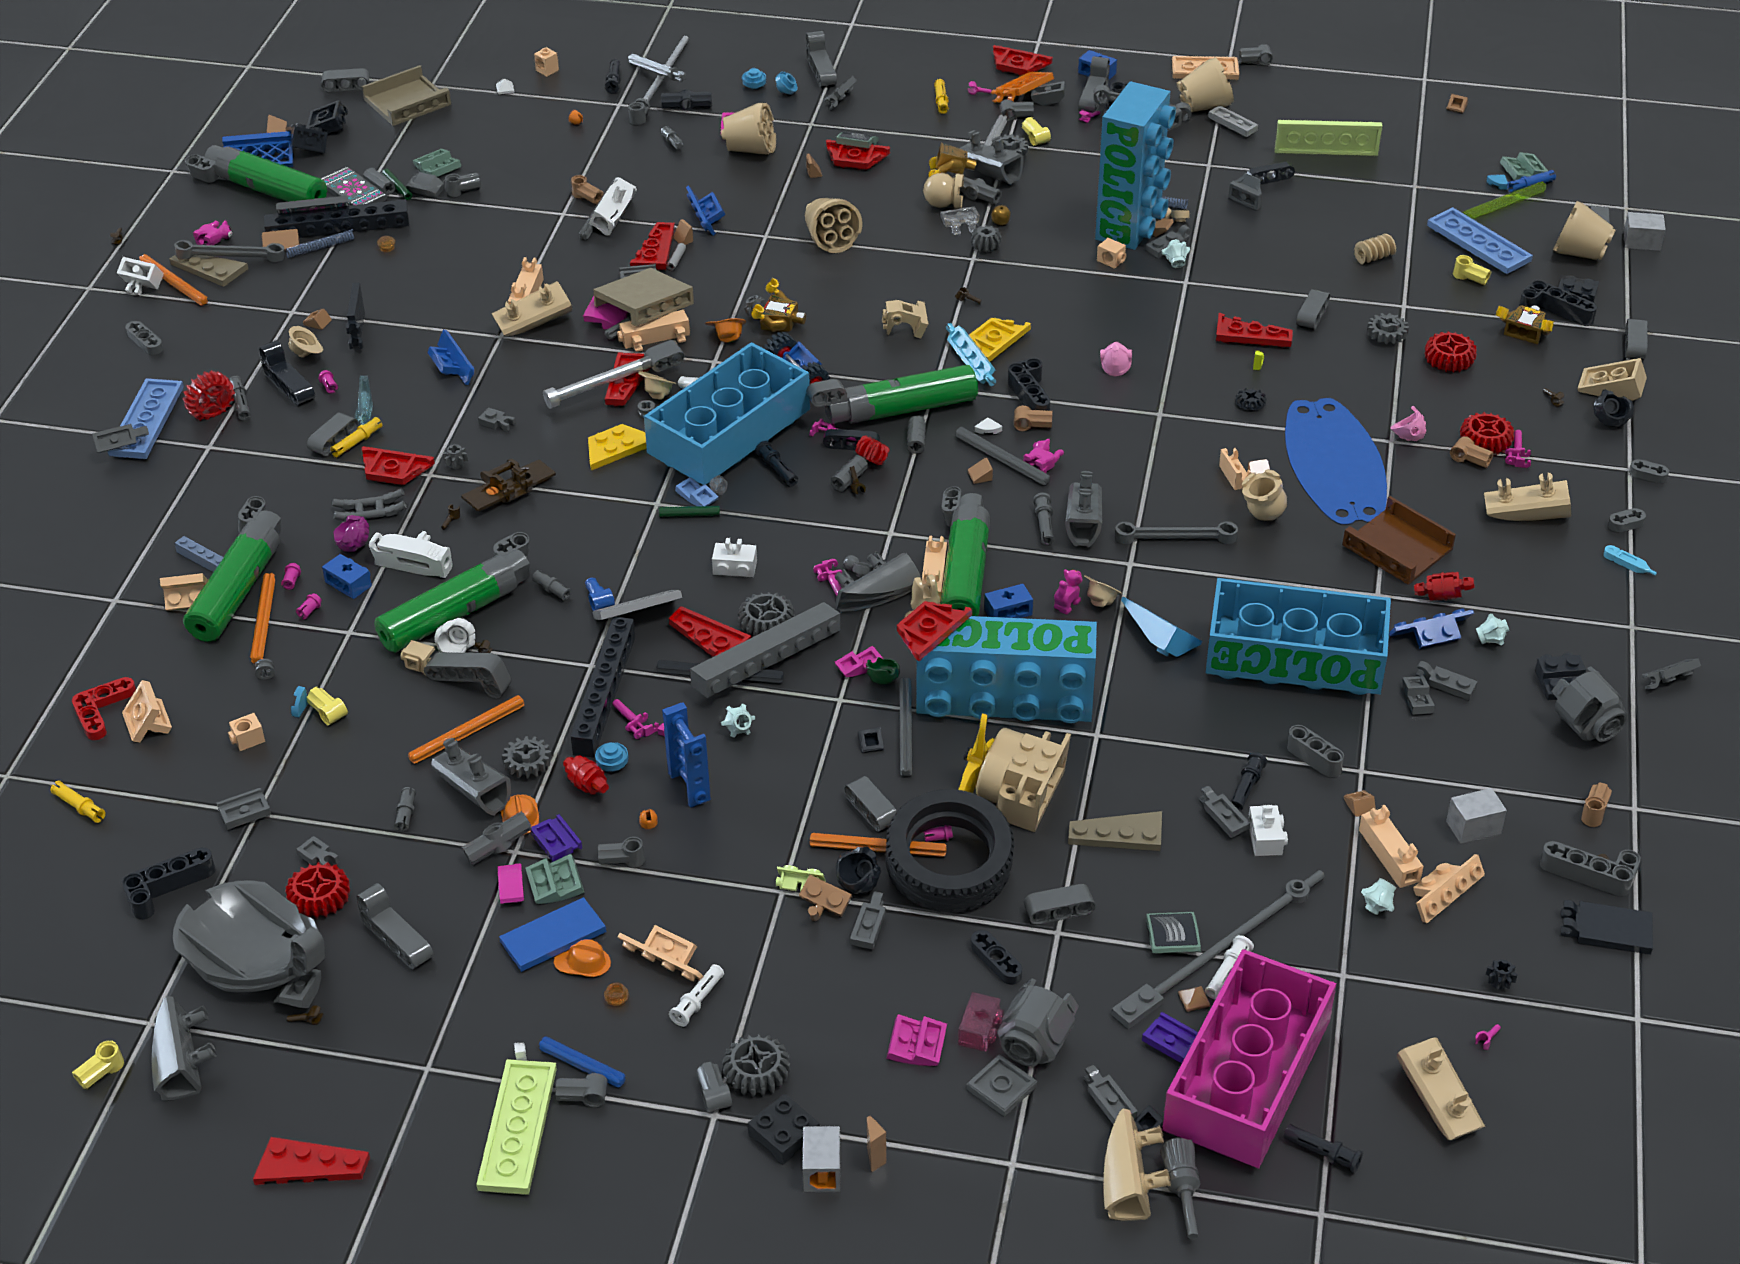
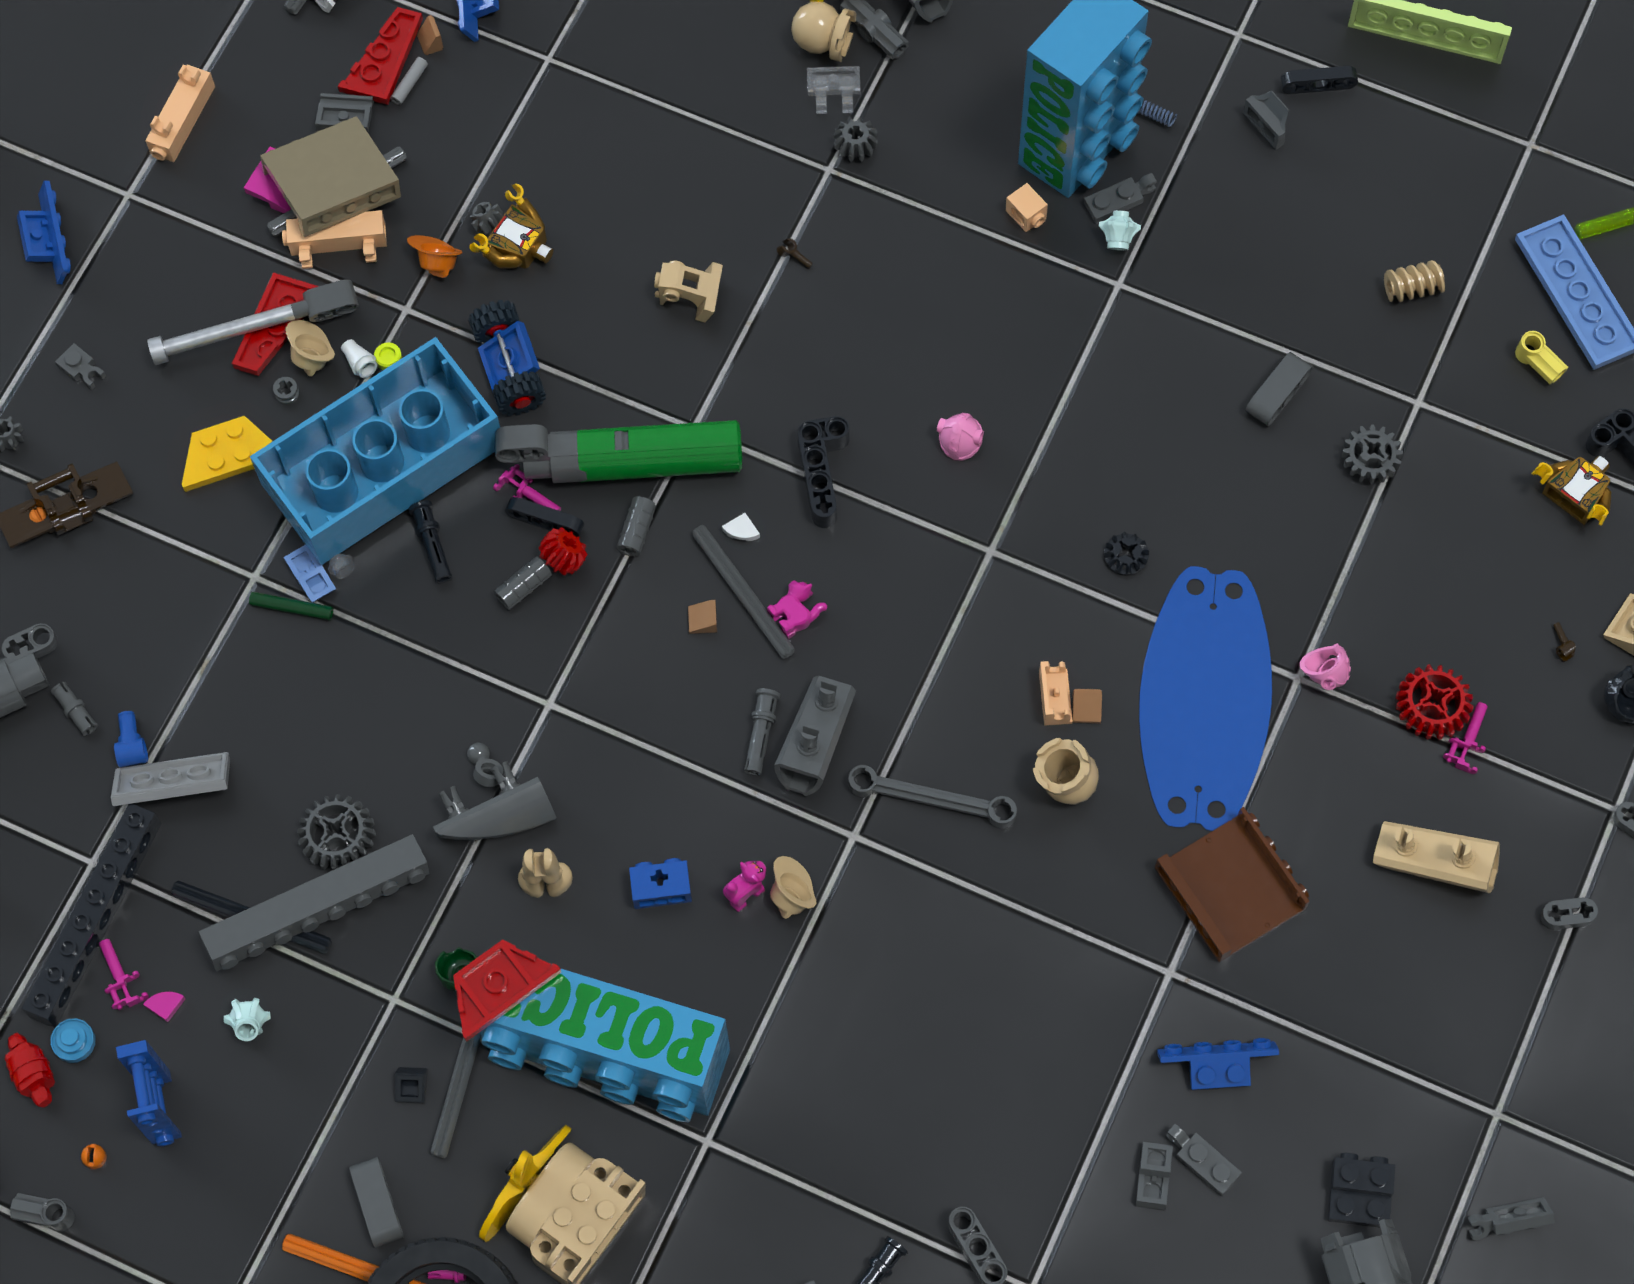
camera: 15 degrees right, 25 degrees up
(533, 310) = (175, 166): tan piece -> none
(706, 632) = (256, 850): red wing -> none
(734, 559) = (322, 718): white brick -> none
(828, 575) = (445, 774): dark pink piece -> none
(833, 223) = (637, 71): tan cone -> none
(855, 665) = (428, 943): dark pink slope -> none
(856, 483) = (526, 606): dark brown hand -> none
(935, 561) = (578, 805): light nougat brick -> none
(965, 549) = (626, 785): green piece -> none
(971, 354) = (760, 380): medium azure plate -> none
(997, 335) = (807, 349): yellow wing -> none
(1000, 215) = (893, 91): pearl gold piece -> none
(1026, 418) = (799, 527): medium nougat piece -> none
(1161, 226) = (1118, 162): medium nougat slope -> none
(1161, 632) = (848, 985): wedge -> none
(1179, 215) = (1152, 143): tan plate -> none
(1253, 333) = (1162, 413): red wing -> none
(1258, 360) = (1163, 477): neon yellow tile -> none
(1299, 636) = (1013, 1059): dark azure brick -> none
(1444, 586) = (1259, 991): red piece -> none
(1450, 351) = (1467, 524): red gear -> none
(1466, 450) = (1393, 729): medium nougat piece -> none
(1492, 630) = (1295, 1088): light aqua rock -> none
(1627, 560) = (1539, 989): medium azure piece -> none

